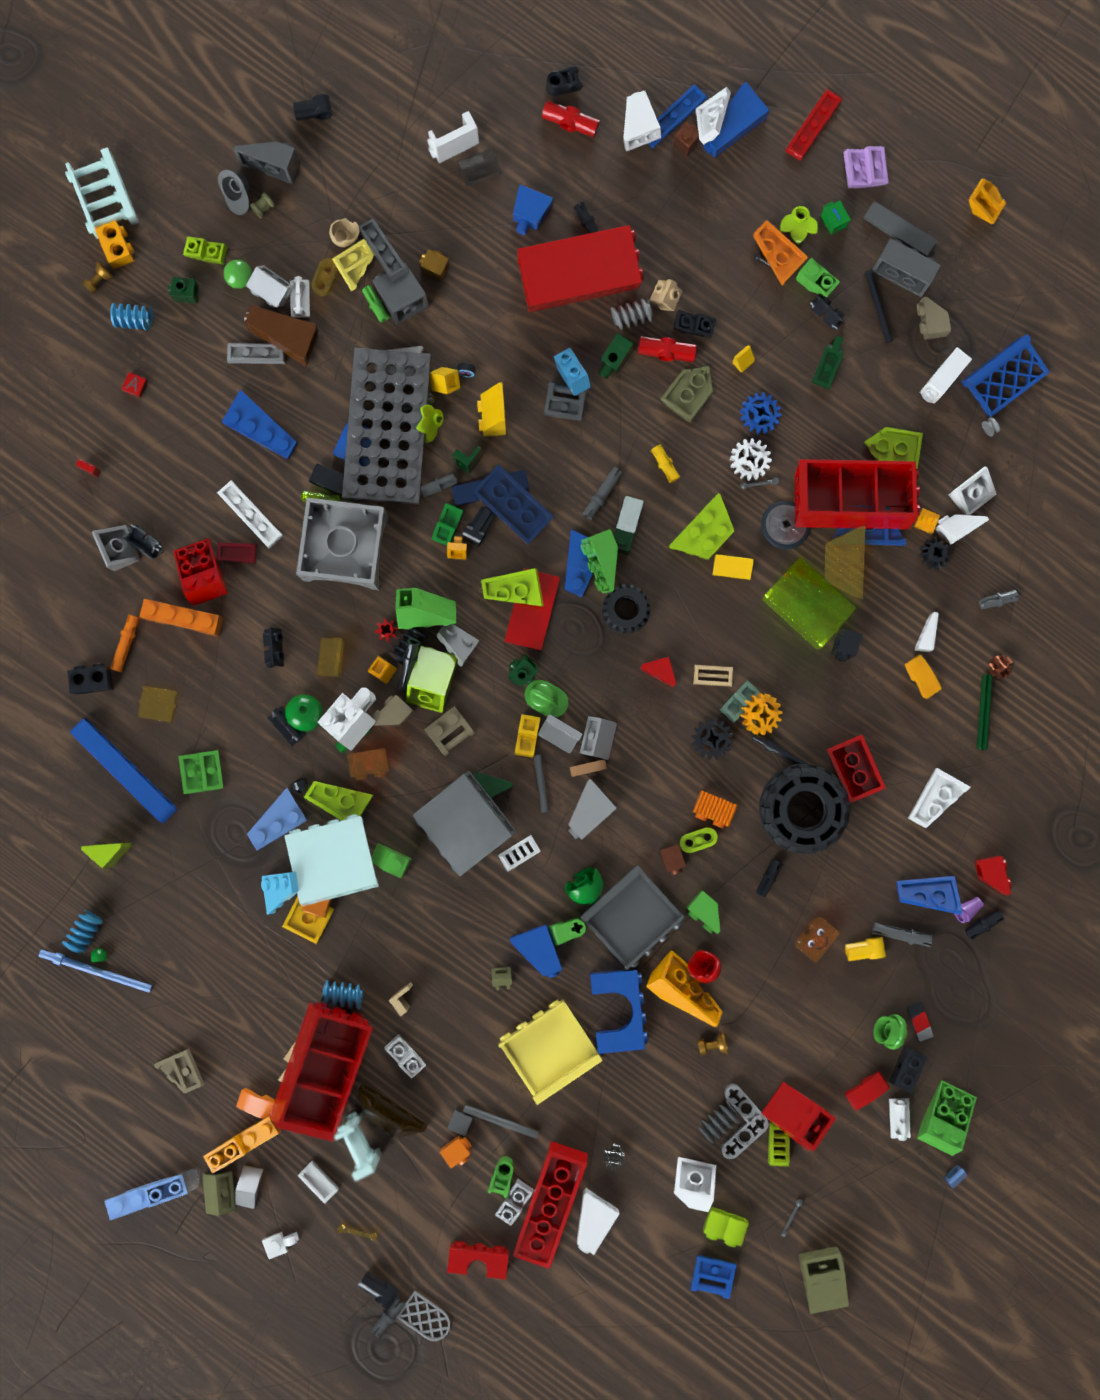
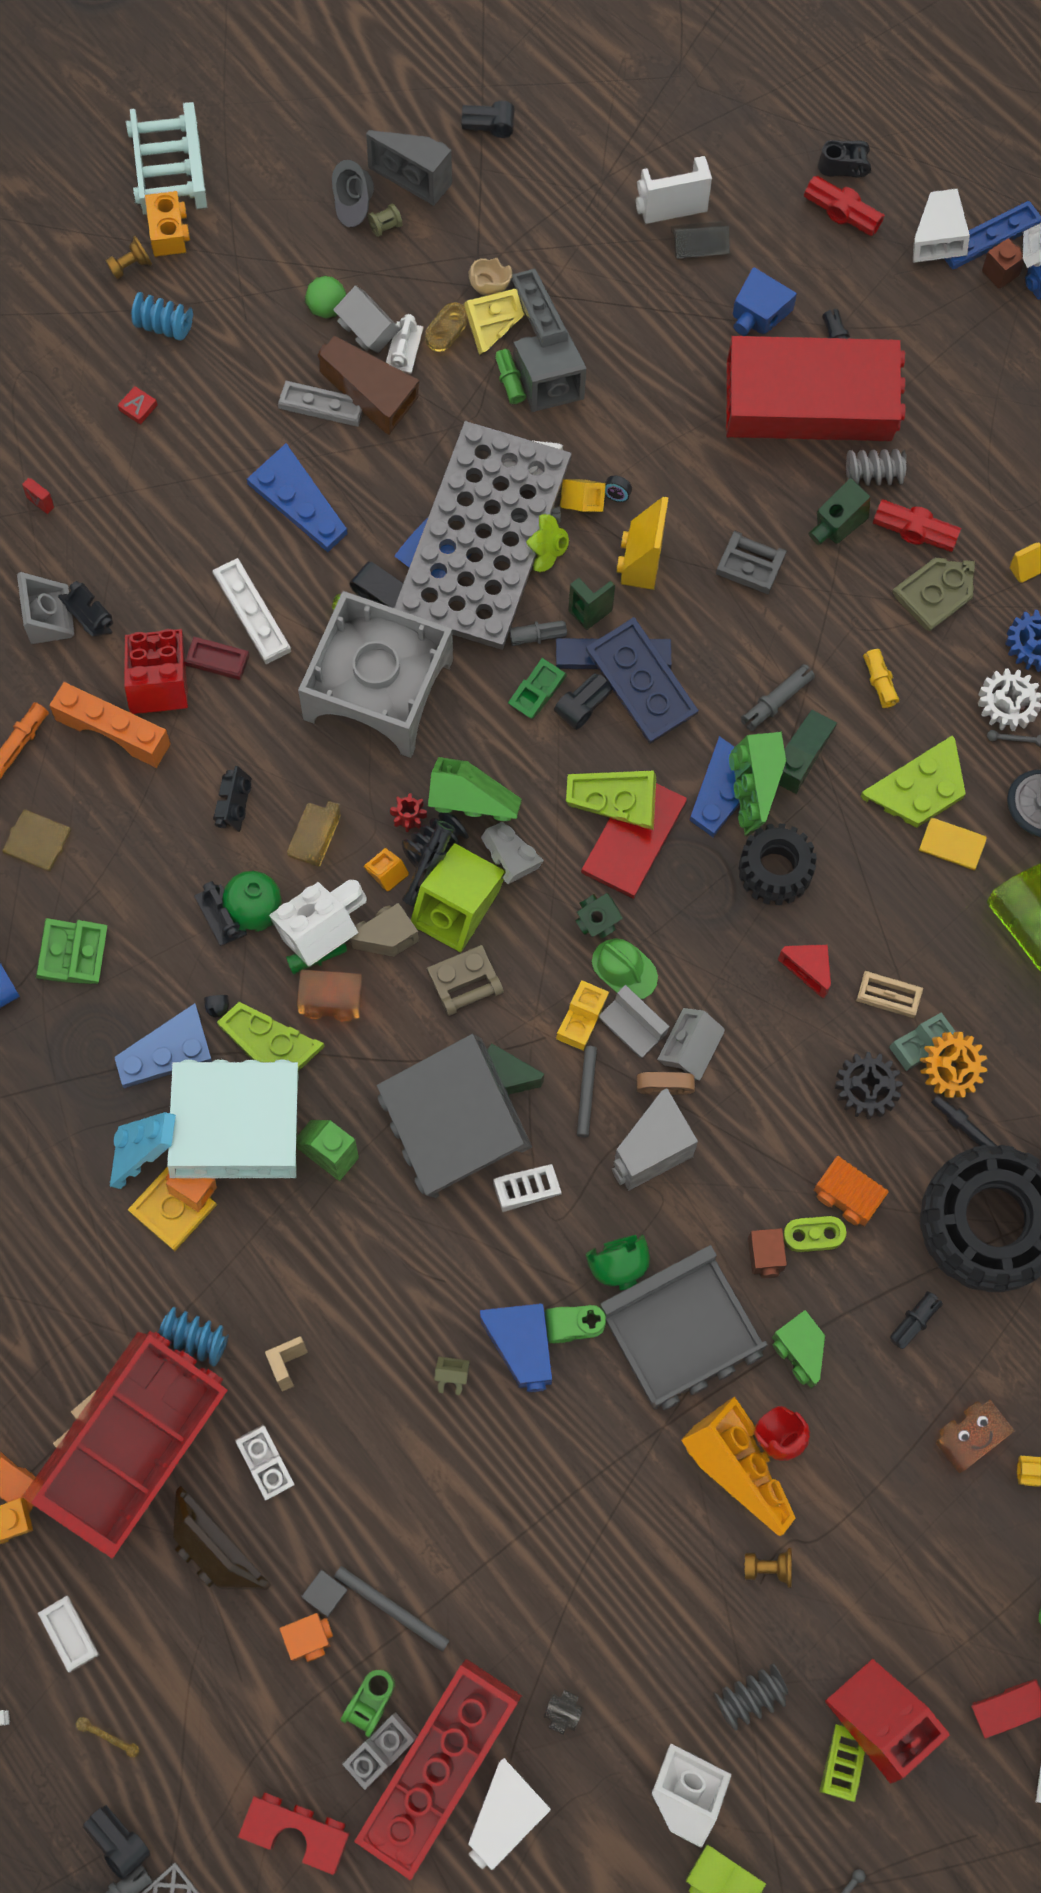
camera: 15 degrees right, 15 degrees down
(183, 290) = (244, 299): dark green brick -> none
(205, 251) = (284, 258): lime slope -> none
(364, 1155) = (154, 1599): light aqua fence -> none
(434, 264) = (607, 344): pearl gold brick -> none
(457, 549) = (542, 724): light orange tile -> none
(550, 1050) = (499, 1509): light yellow panel -> none
(572, 371) = (771, 521): dark azure brick -> none
(631, 1035) = (649, 1431): blue arch -> none
(666, 295) = (931, 453): tan brick -> none
(694, 324) = (966, 505): black slope -> none
(750, 1119) = (803, 1707): light grey beam -> none

